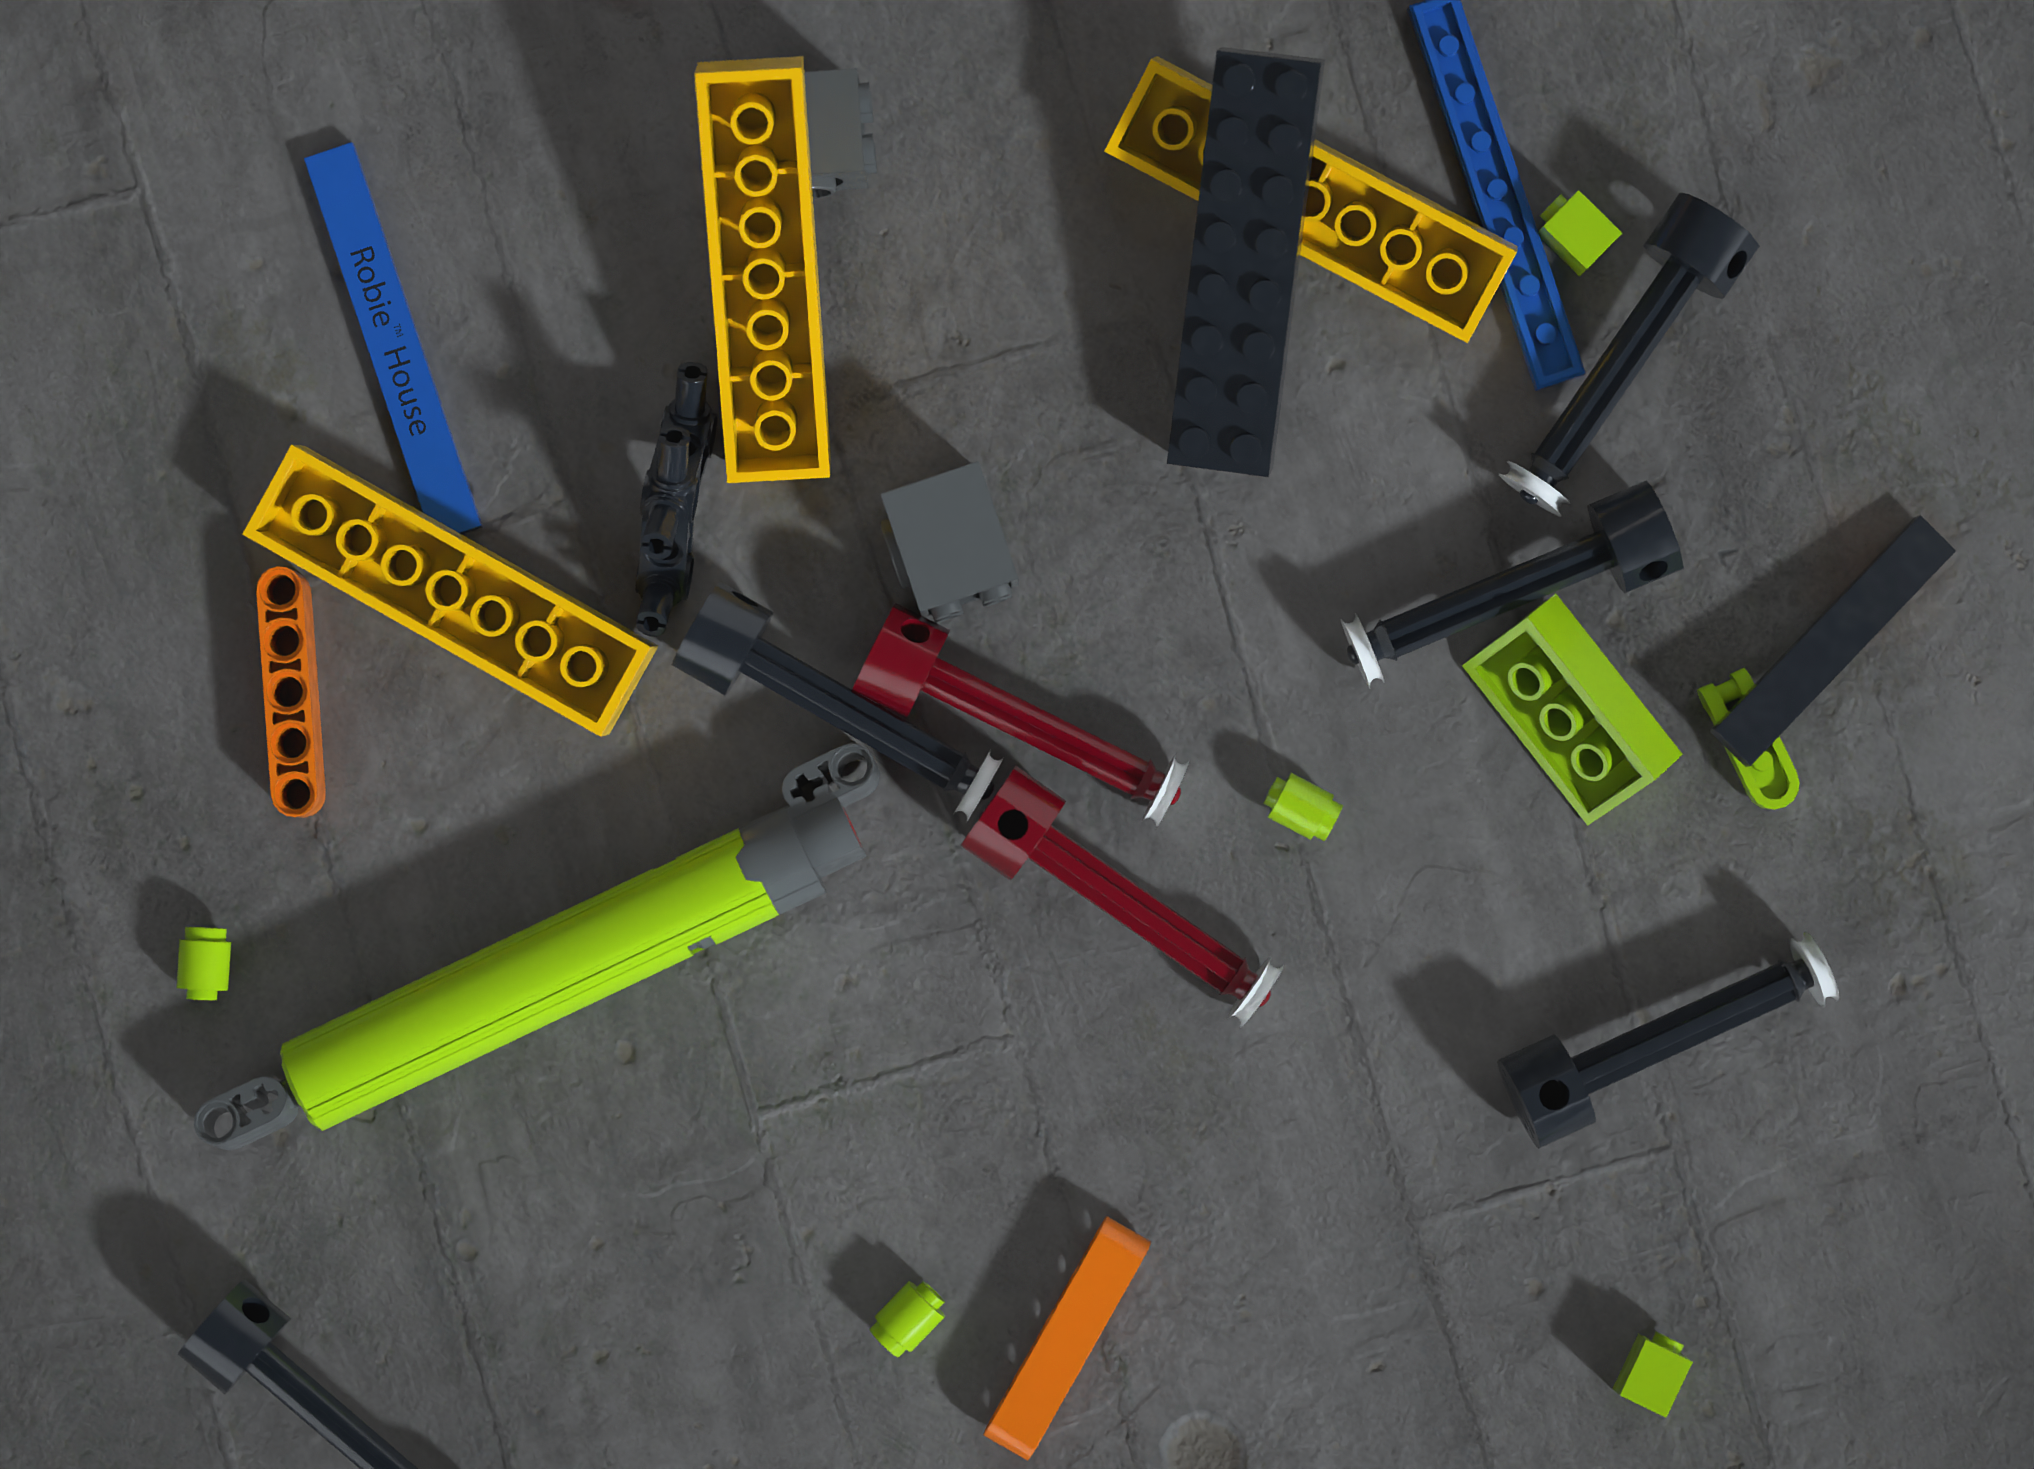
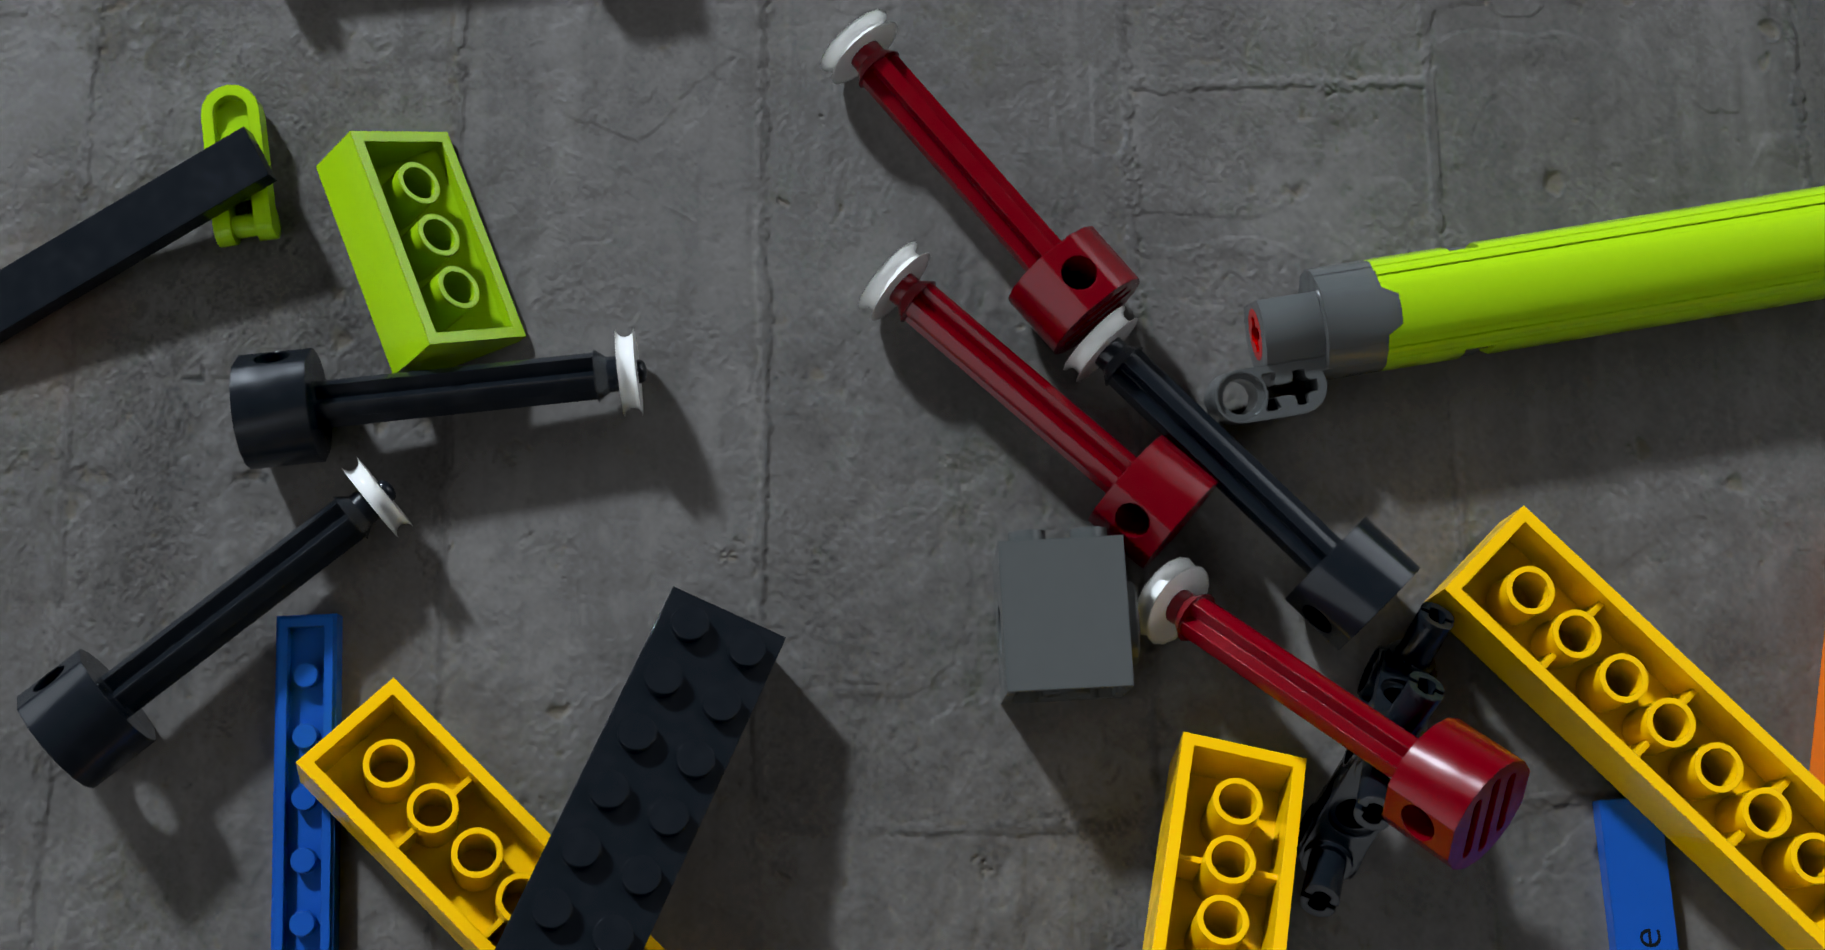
camera: 170 degrees left, 10 degrees down
(627, 465) = (1445, 790): none -> dark red piece
(1302, 807) = (748, 227): lime brick -> none
(1577, 231) = (225, 780): lime brick -> none

